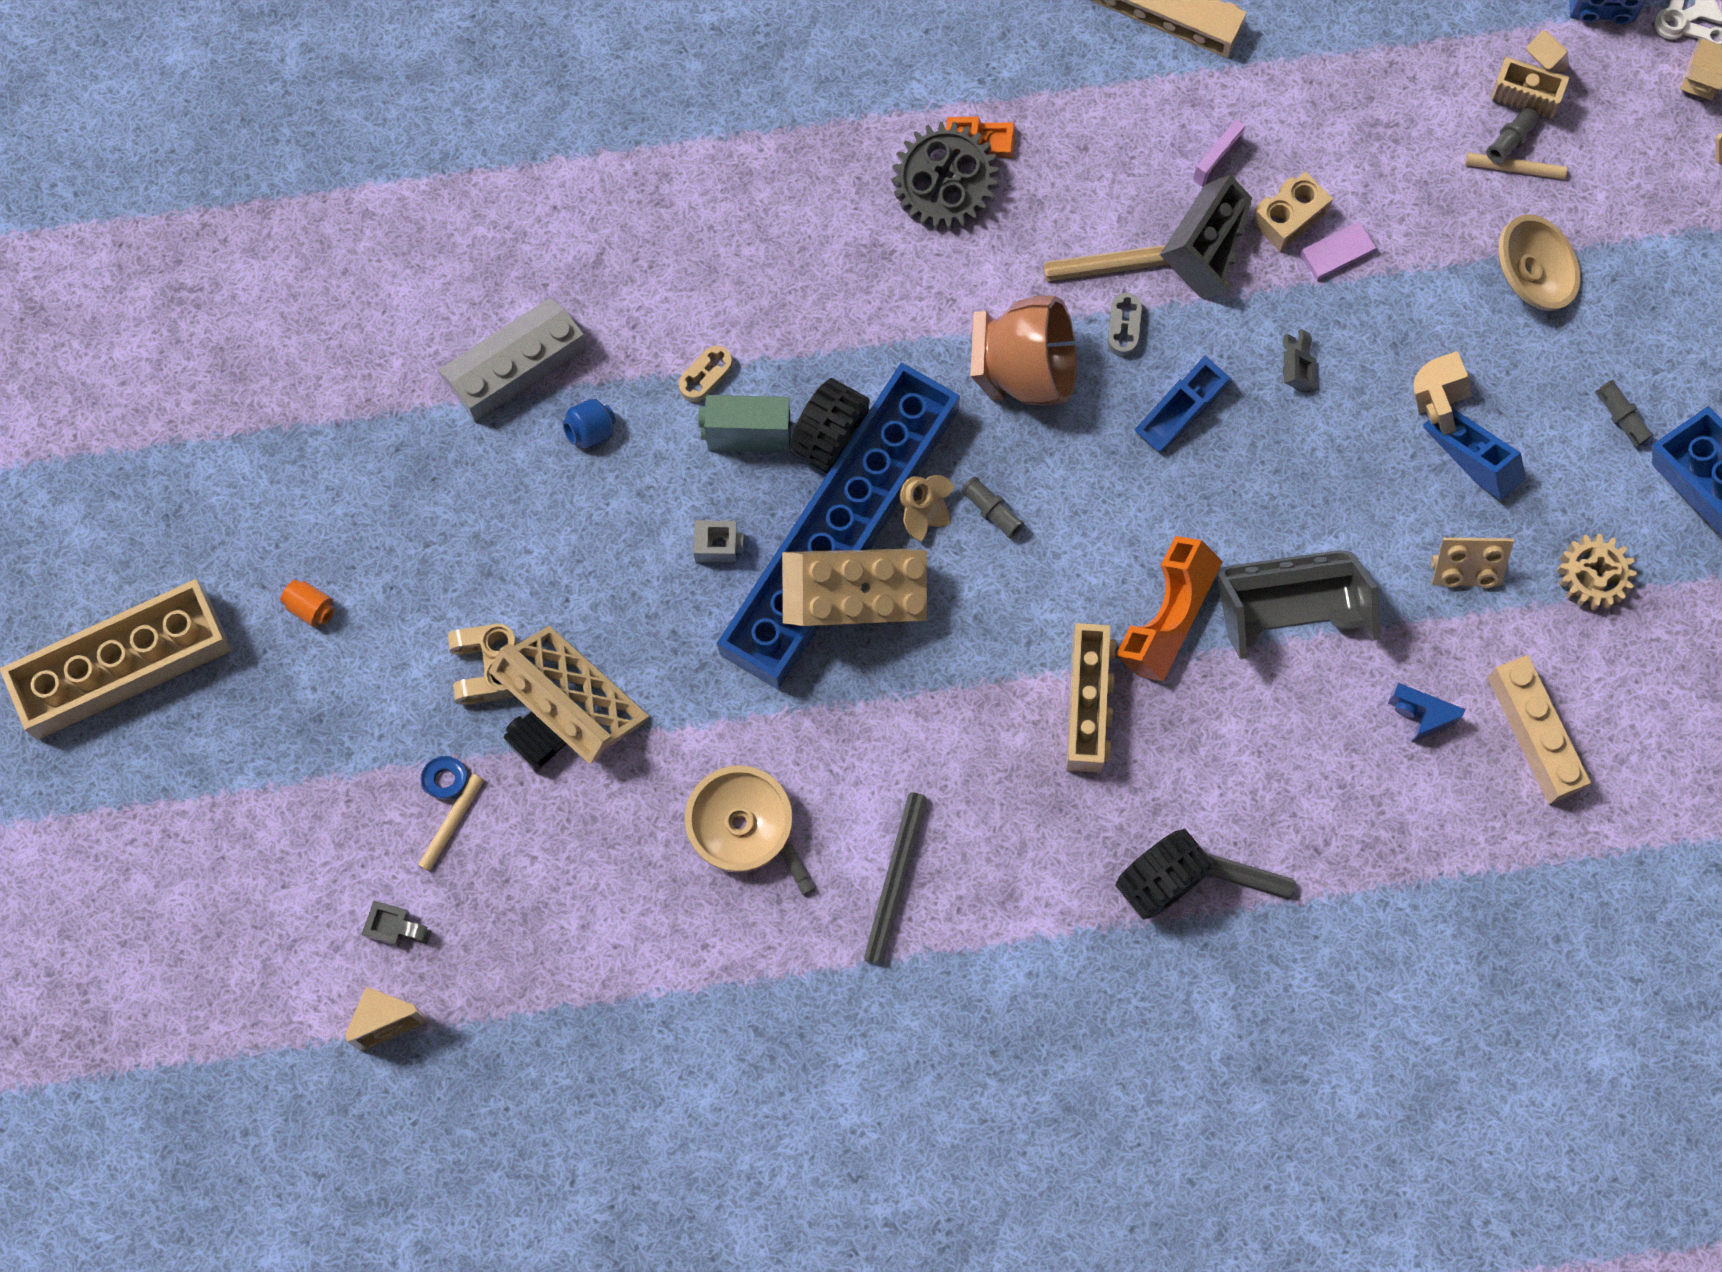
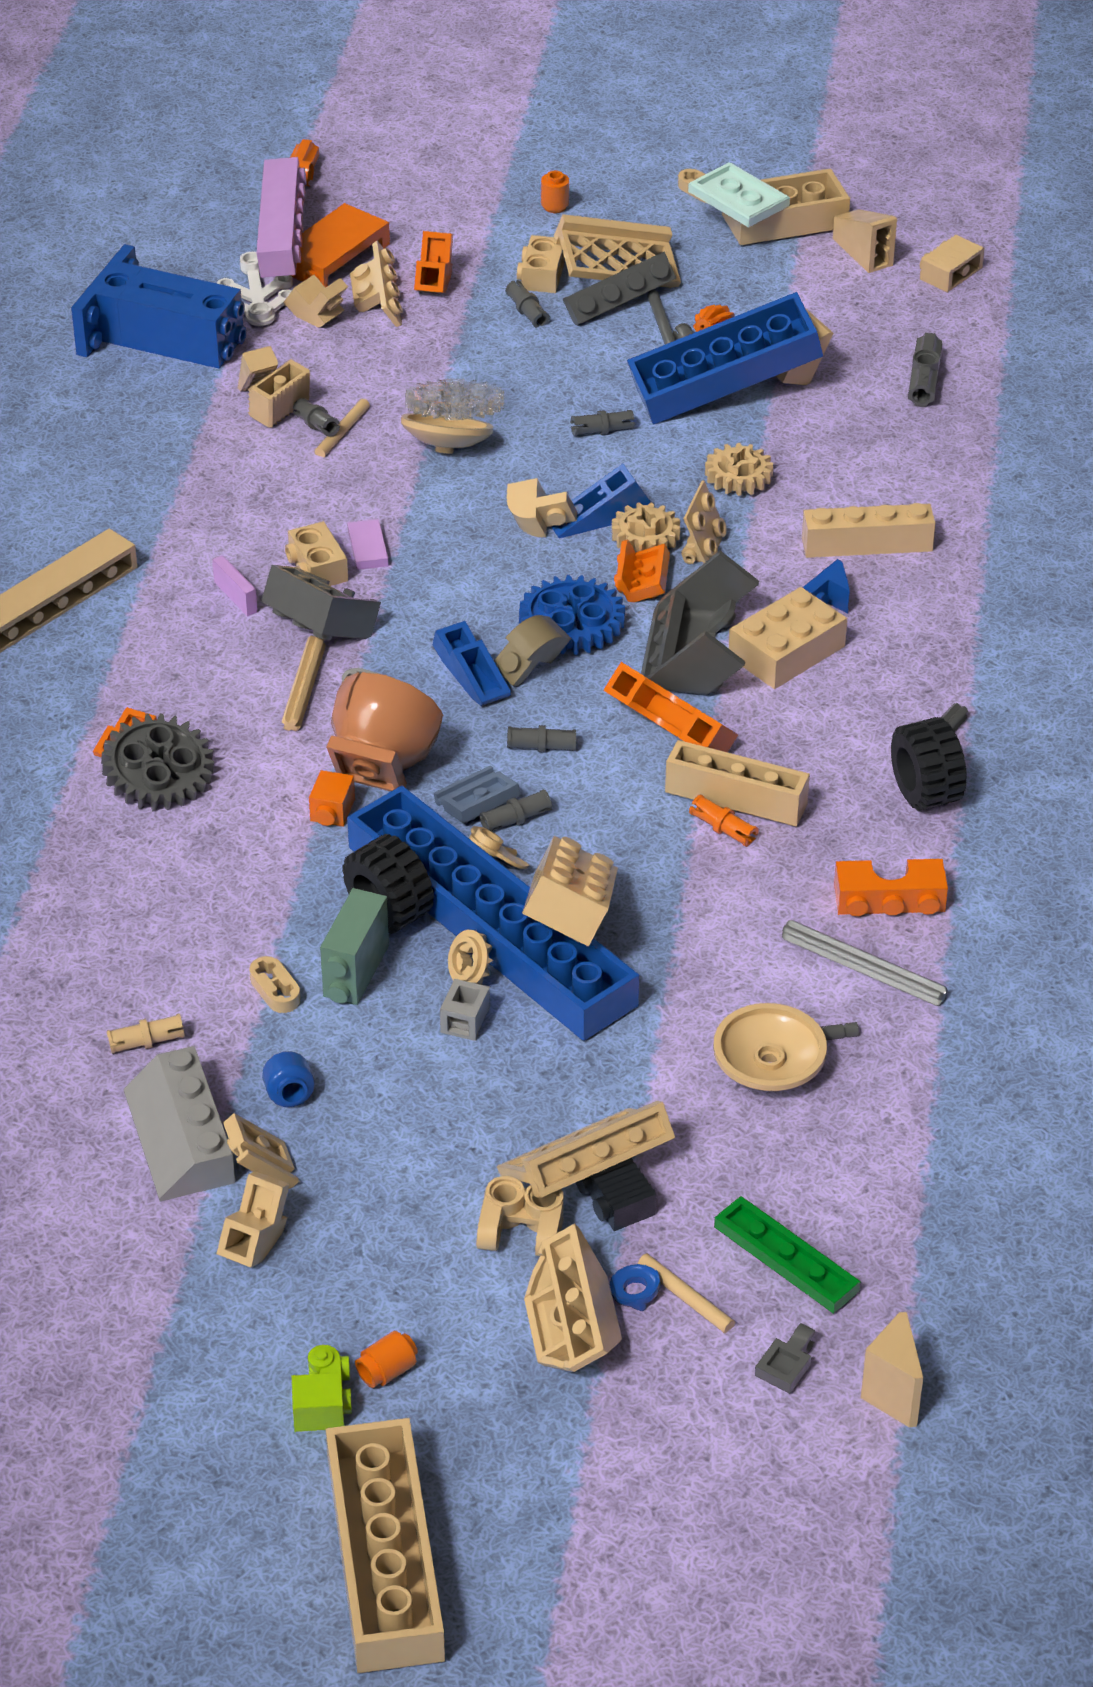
camera: 75 degrees left, 30 degrees down
(255, 570) = (319, 1396): none -> lime brick
(390, 737) = (570, 1304): none -> tan wedge
(412, 453) = (259, 1222): none -> tan brick
(488, 430) = (259, 1150): none -> tan plate
(511, 896) = (787, 1254): none -> green plate
(612, 291) = (145, 1033): none -> tan pin
(774, 526) = (460, 962): none -> tan gear
(948, 341) = (331, 798): none -> orange brick
(1003, 465) = (476, 794): none -> sand blue plate
(1005, 909) = (864, 892): none -> orange arch
(1044, 699) = (723, 820): none -> orange pin
(1102, 500) = (541, 738): none -> dark grey pin
(1216, 451) = (529, 643): none -> dark tan brick
(1299, 366) = (471, 589): dark grey plate -> none
(1314, 496) = (593, 607): none -> blue gear
(1331, 691) = (788, 637): none -> tan brick
(1387, 520) = (642, 572): none -> orange bracket
(1457, 491) = (646, 527): none -> tan gear
(1590, 257) = (454, 399): none -> clear gear

